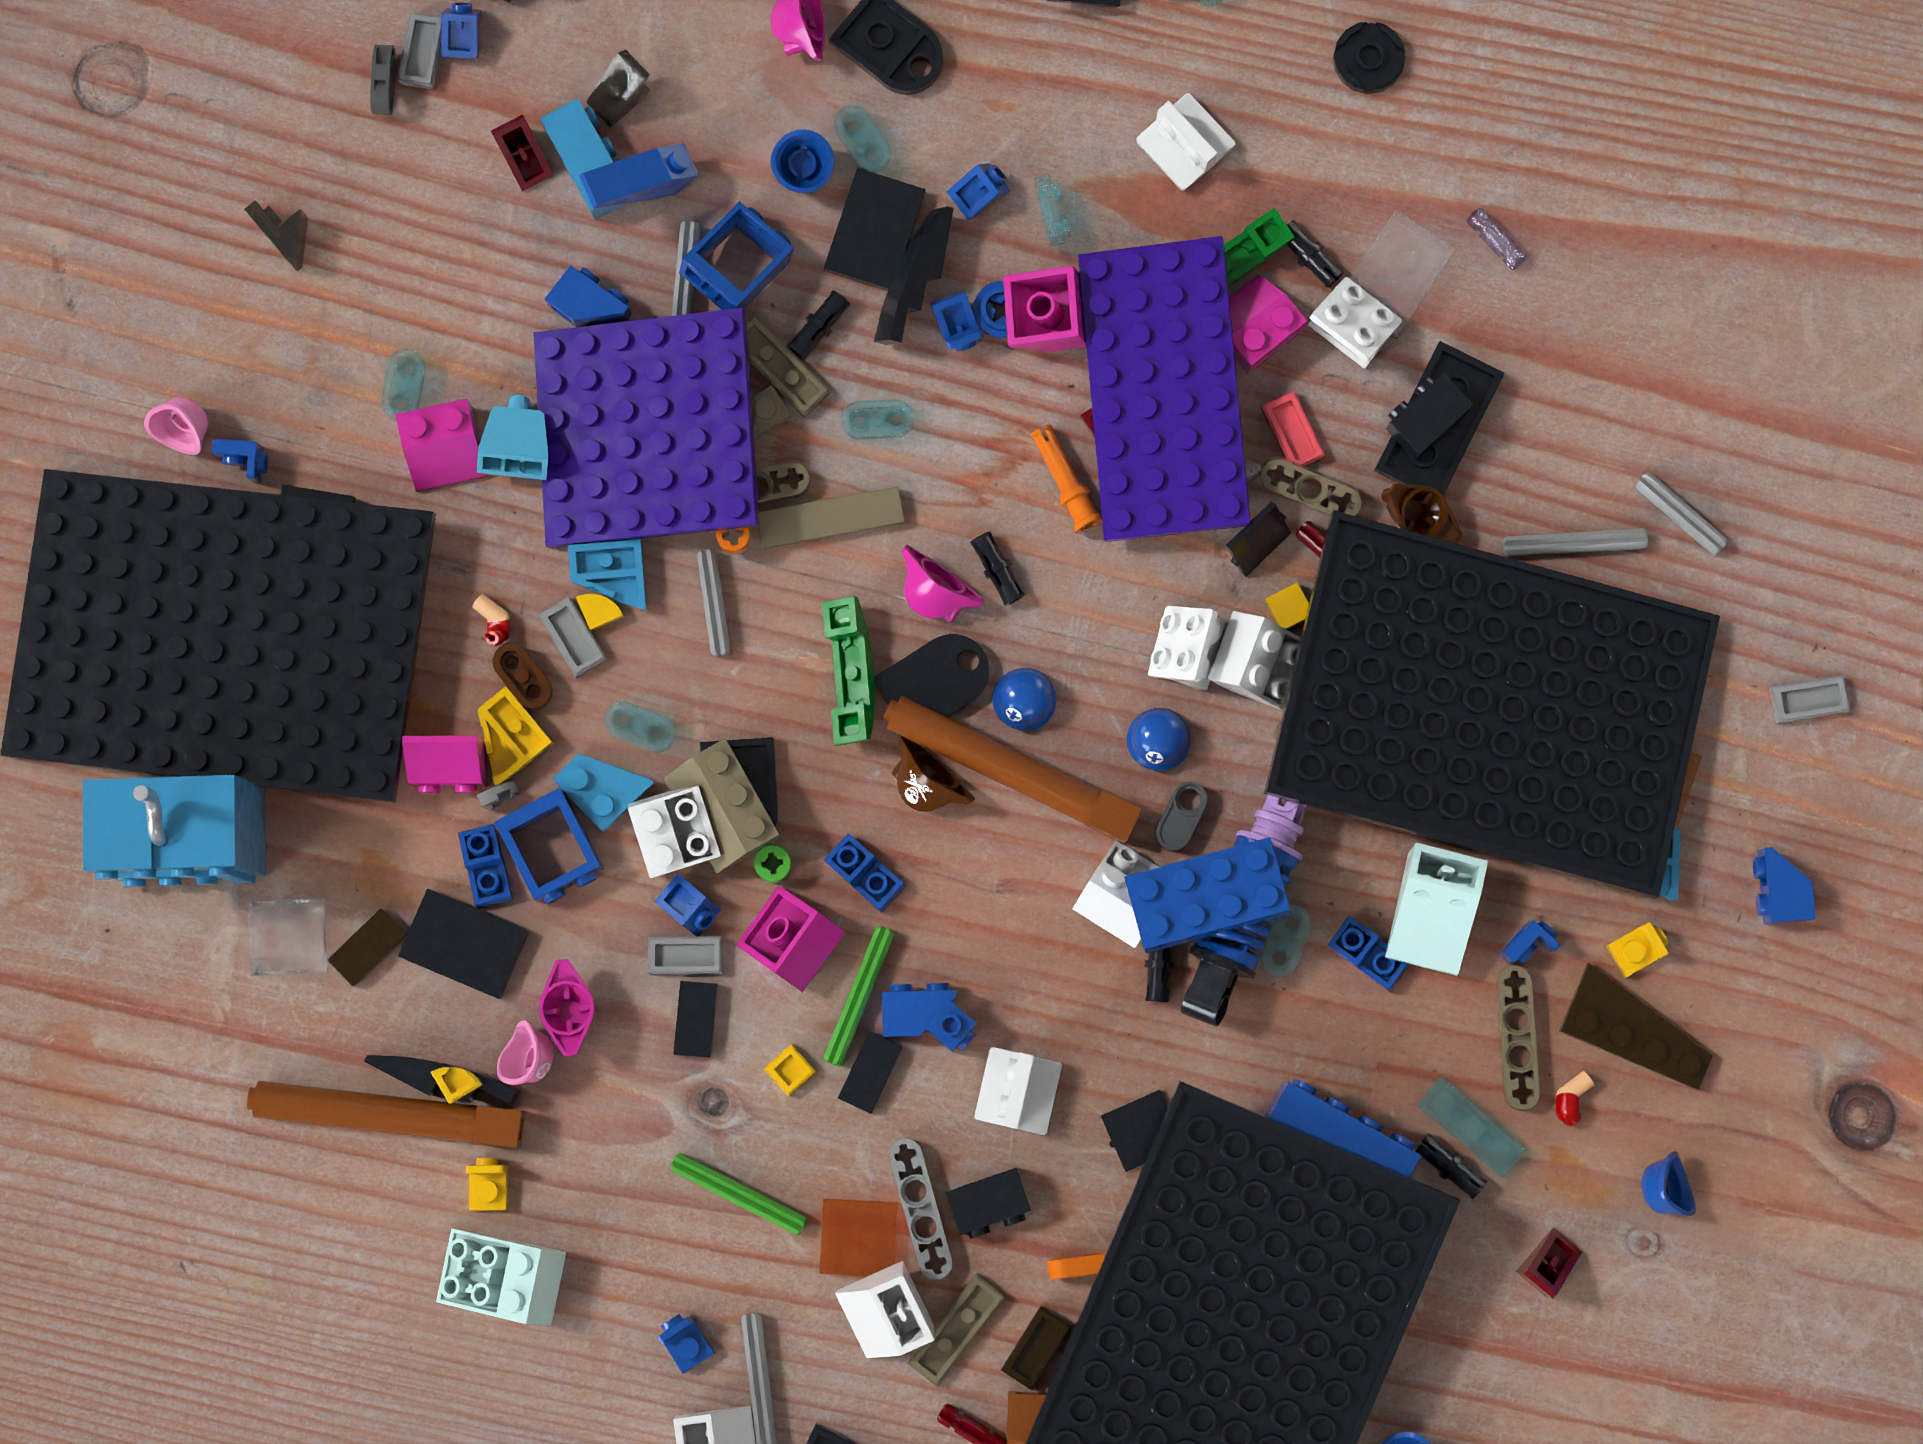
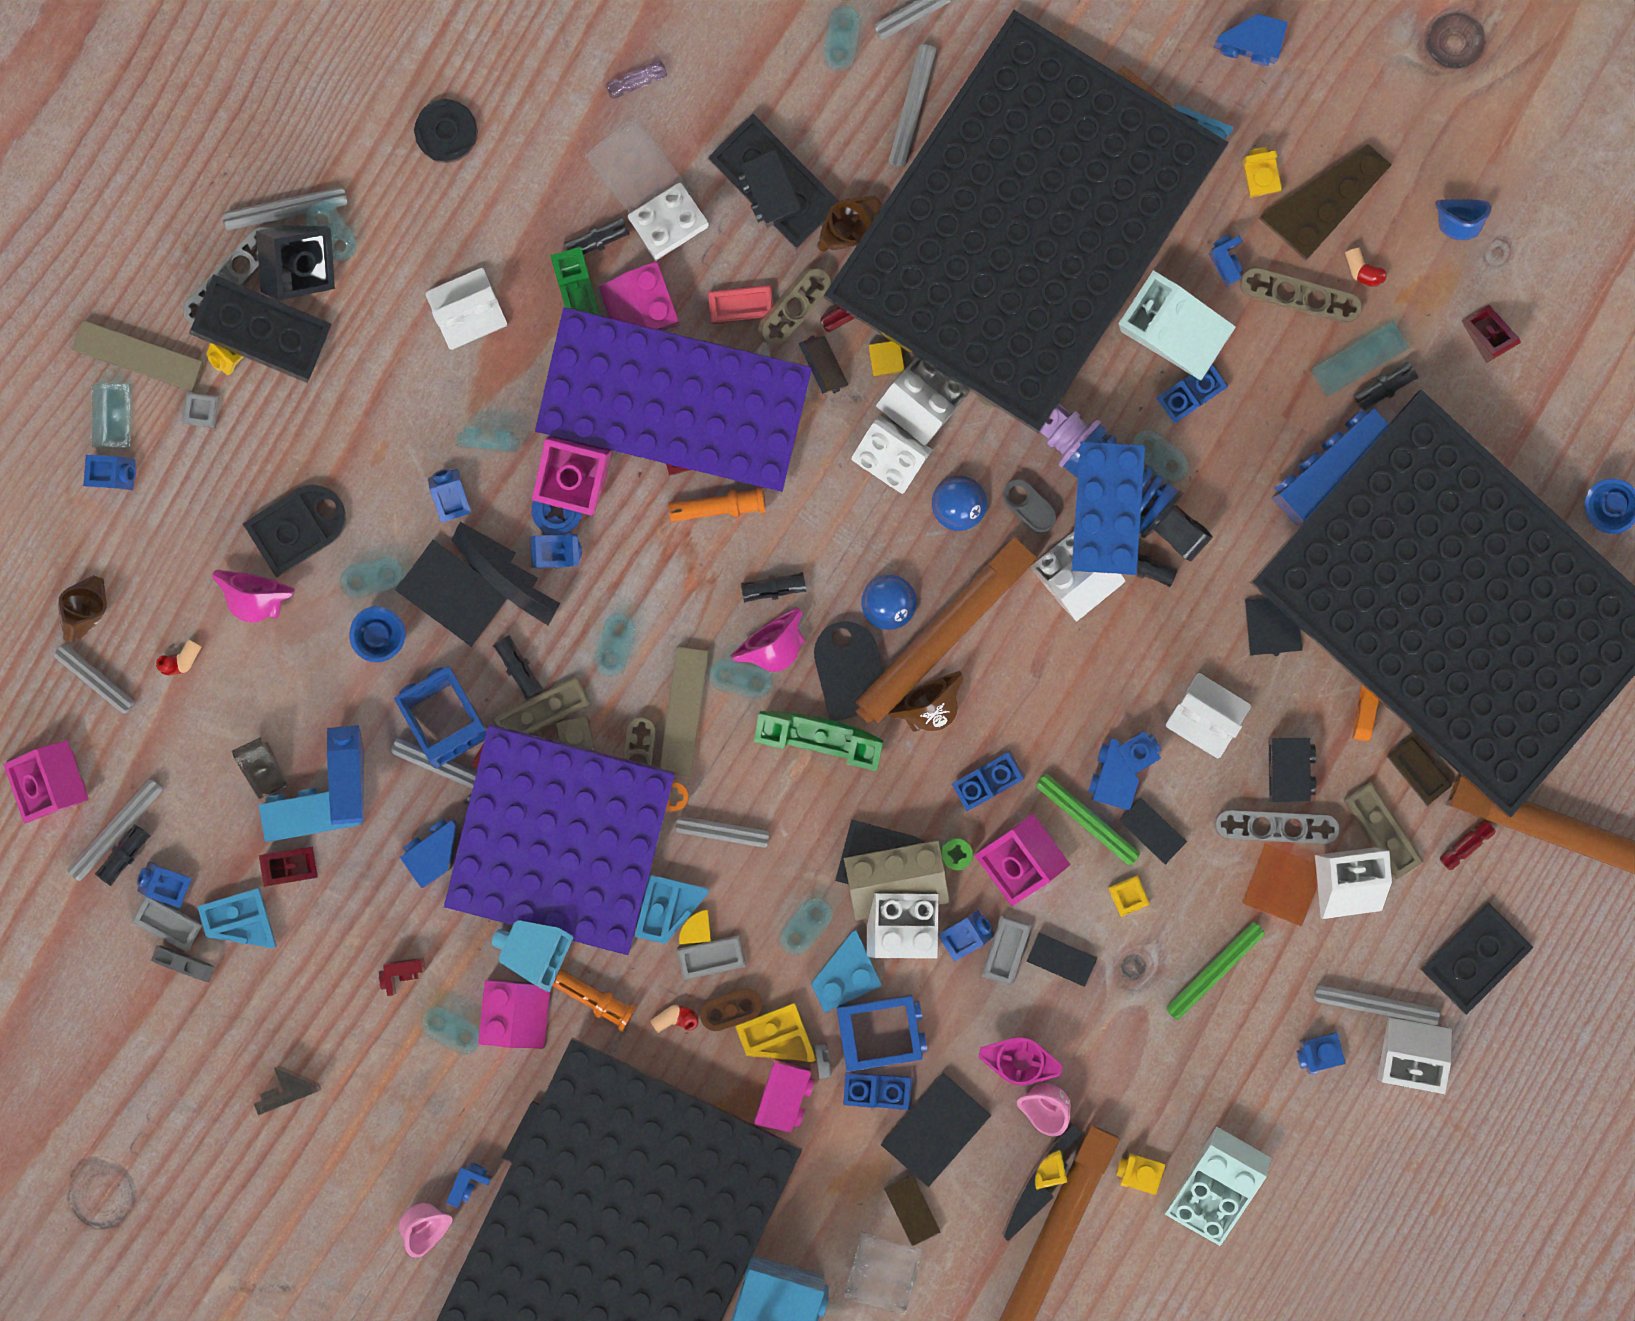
camera: 75 degrees left, 5 degrees up
(449, 122) = (239, 919): none -> dark azure wing
(452, 315) = (404, 969): none -> dark red bracket
(484, 535) = (602, 1003): none -> orange pin
(885, 567) = (740, 679): none -> clear light blue plate
(1619, 441) = (841, 38): none -> clear light blue plate

